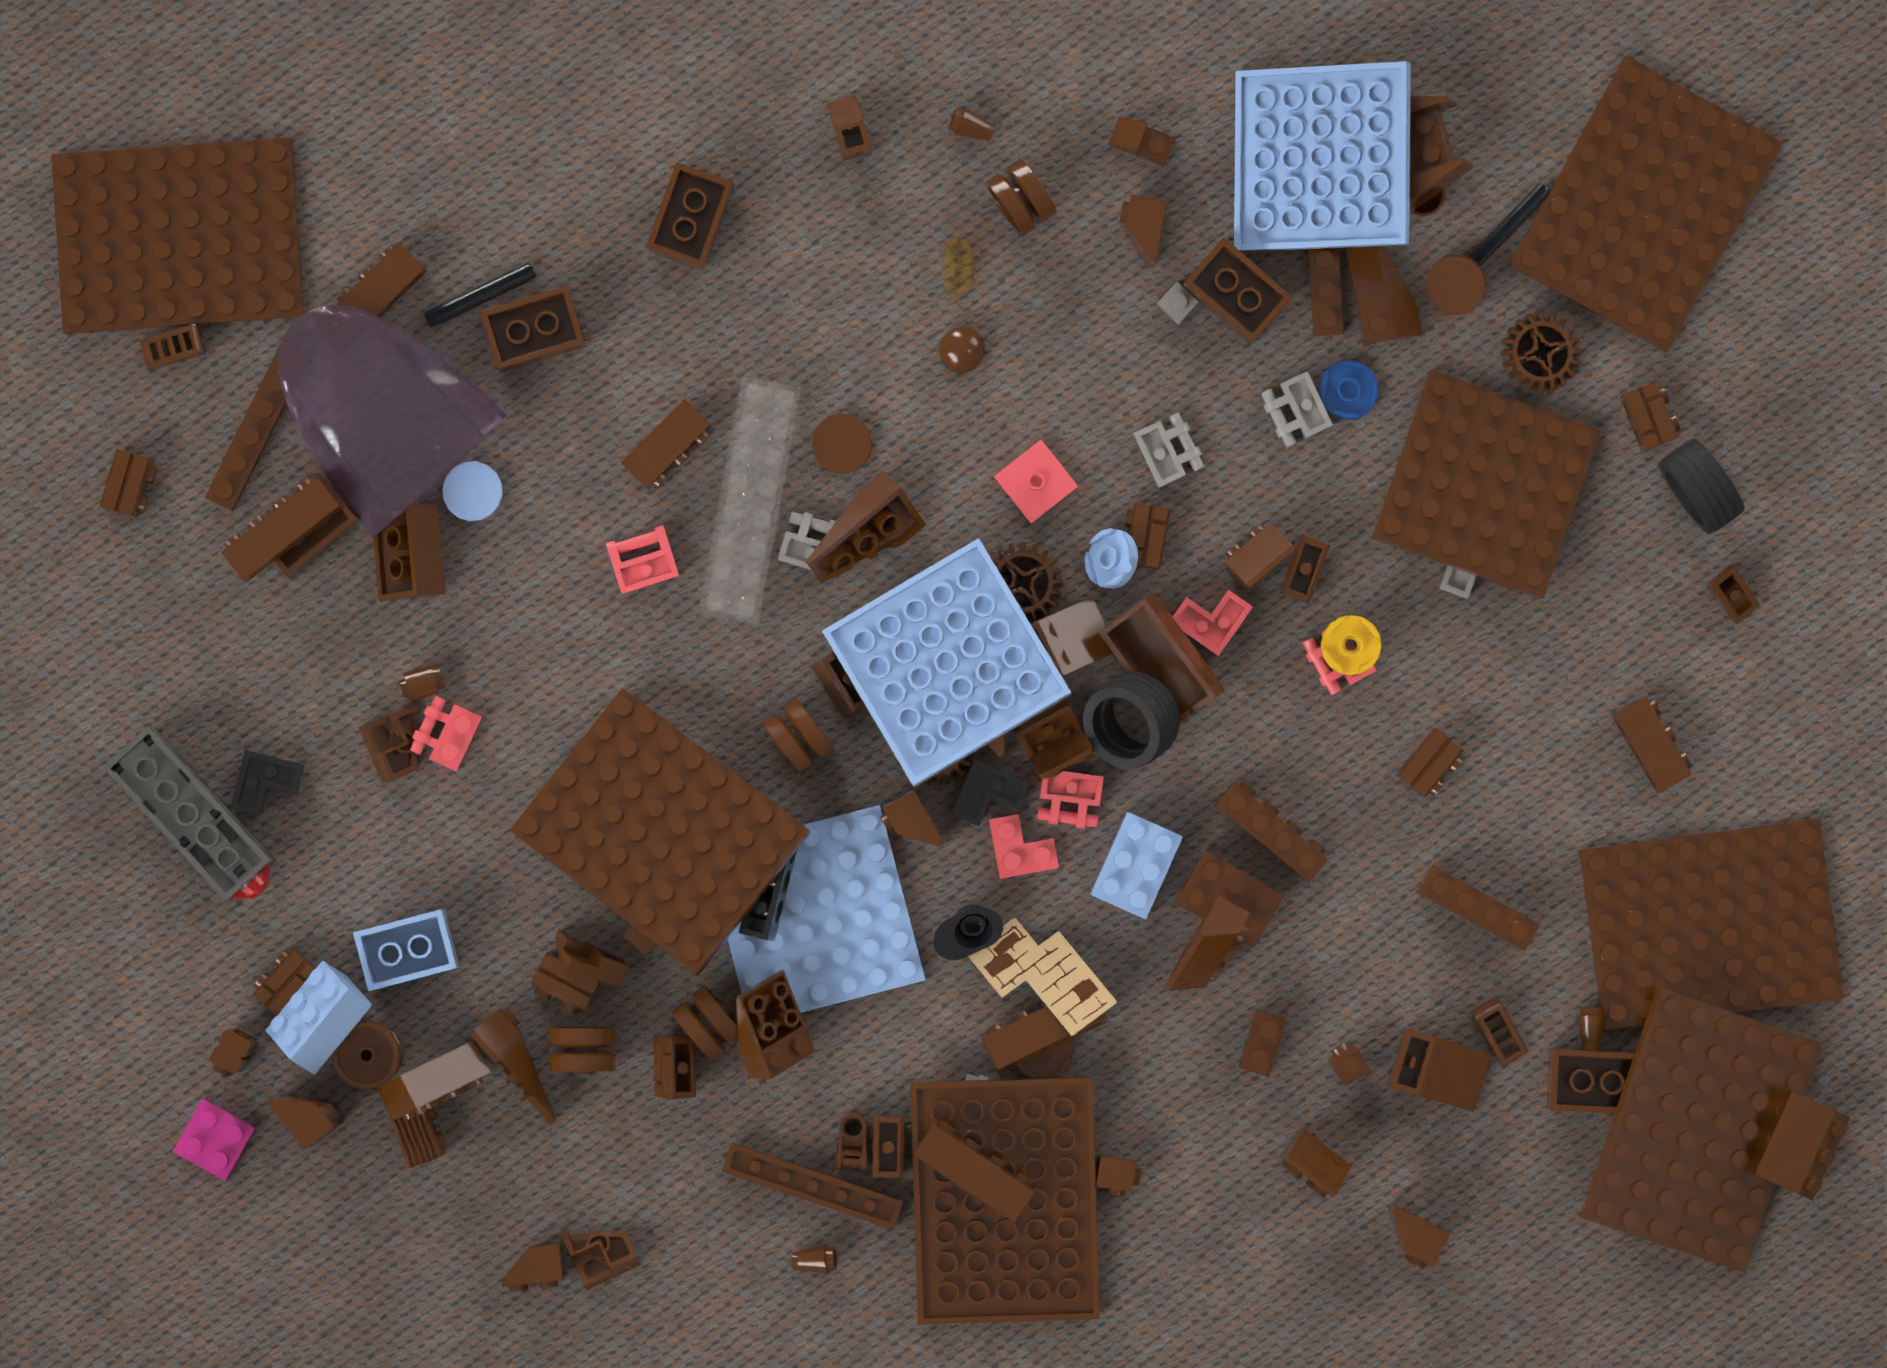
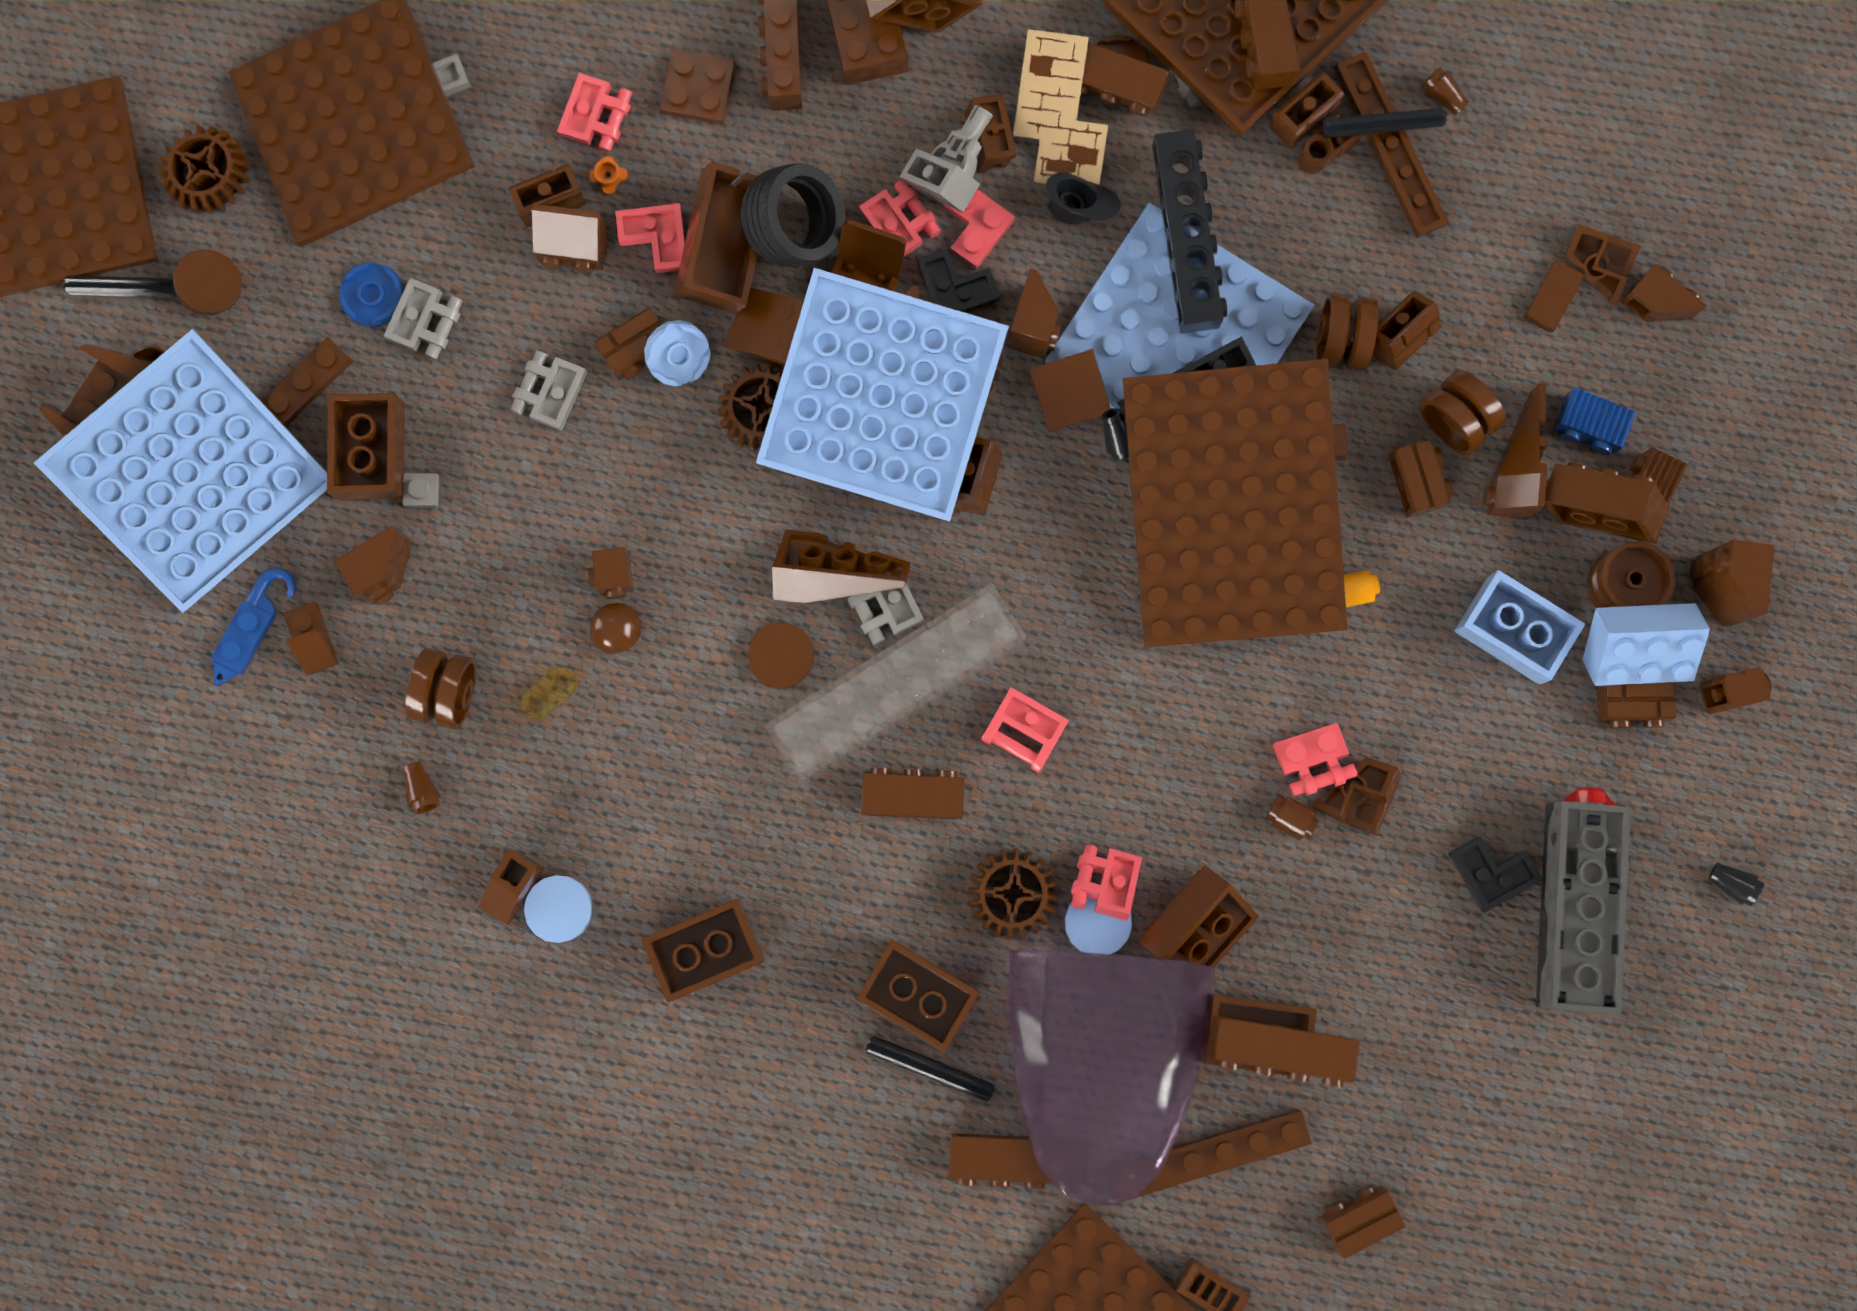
camera: 135 degrees left, 5 degrees down
(110, 934) = (1736, 883): none -> black cone
(214, 1139) = (1811, 645): dark pink plate -> none
(486, 526) = (1117, 884): none -> coral plate
(496, 1137) = (1593, 421): none -> blue brick
(532, 869) = (1360, 588): none -> light orange brick
(552, 442) = (1042, 896): none -> reddish brown gear
(590, 960) = (1385, 473): reddish brown slope -> none
(605, 1197) = (1553, 296): none -> reddish brown tile
(771, 1028) = (1307, 272): reddish brown slope -> none
(786, 802) = (1115, 434): none -> black cone
(796, 738) = (1052, 468): reddish brown wheel -> none
(807, 146) = (558, 909): none -> light blue tile
(829, 1189) = (1384, 122): none -> black axle
(842, 802) = (1070, 390): none -> reddish brown tile
(944, 1018) = (1184, 149): none -> black brick
(1000, 379) = (611, 572): none -> reddish brown brick
(1036, 481) = (670, 472): coral plate -> none
(1070, 860) = (950, 168): none -> light grey brick
(1073, 915) = (997, 136): none -> reddish brown hinge
(1136, 865) = (904, 117): light blue brick -> none
(1187, 107) = (248, 627): none -> blue plate
(1292, 620) = (605, 166): none -> orange plate
(1295, 745) = (697, 87): none -> reddish brown plate
(1367, 645) = (572, 90): yellow plate -> none
(1381, 297) = (273, 334): reddish brown wedge -> none
(1650, 416) = (182, 42): reddish brown brick -> none

